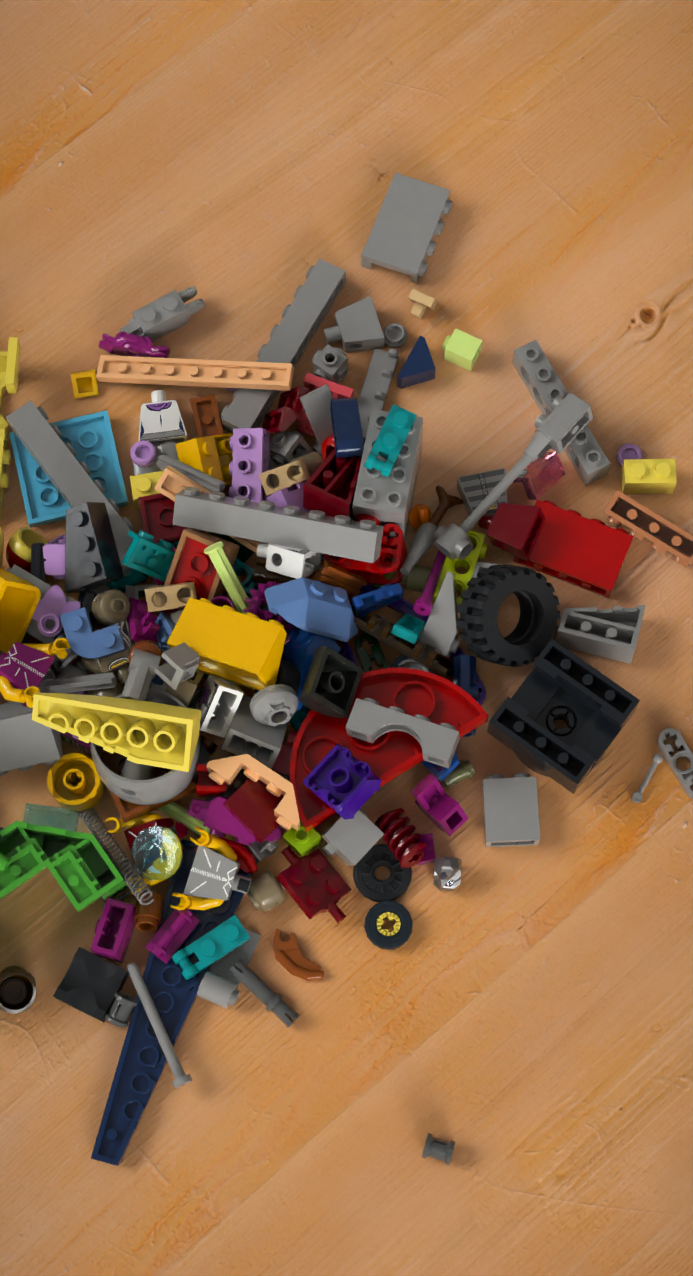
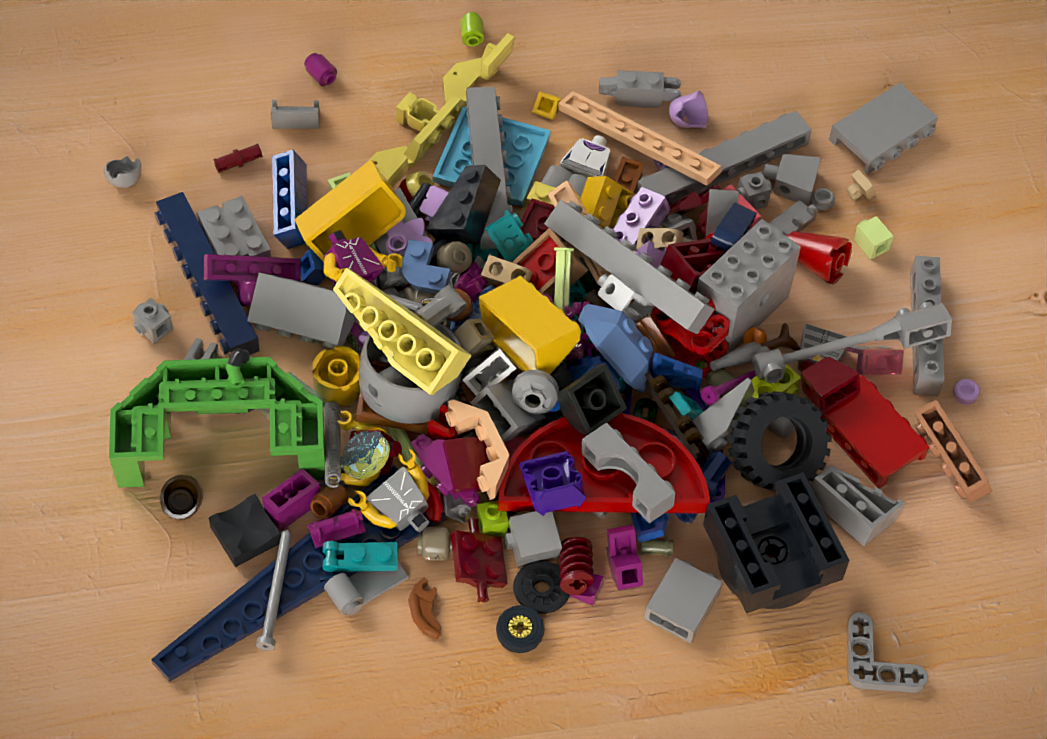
camera: 25 degrees right, 15 degrees down
(121, 1009) = (255, 560): dark grey bush -> none
(124, 343) = (600, 90): magenta piece -> none
(143, 453) = (557, 171): lavender tile -> none
(180, 666) = (479, 316): light grey window -> none
(205, 480) = (587, 202): light grey axle -> none
(225, 308) = (693, 107): none -> lavender hair
(264, 993) = (383, 630): dark grey pin -> none
(390, 440) = (761, 245): teal plate -> none
(418, 366) = (828, 224): dark blue slope -> none
(426, 396) = (823, 254): none -> red cone
(447, 873) = (597, 615): flat silver rock -> none
(637, 796) = (802, 653): light grey hinge -> none
(648, 476) = (973, 411): light yellow piece -> none

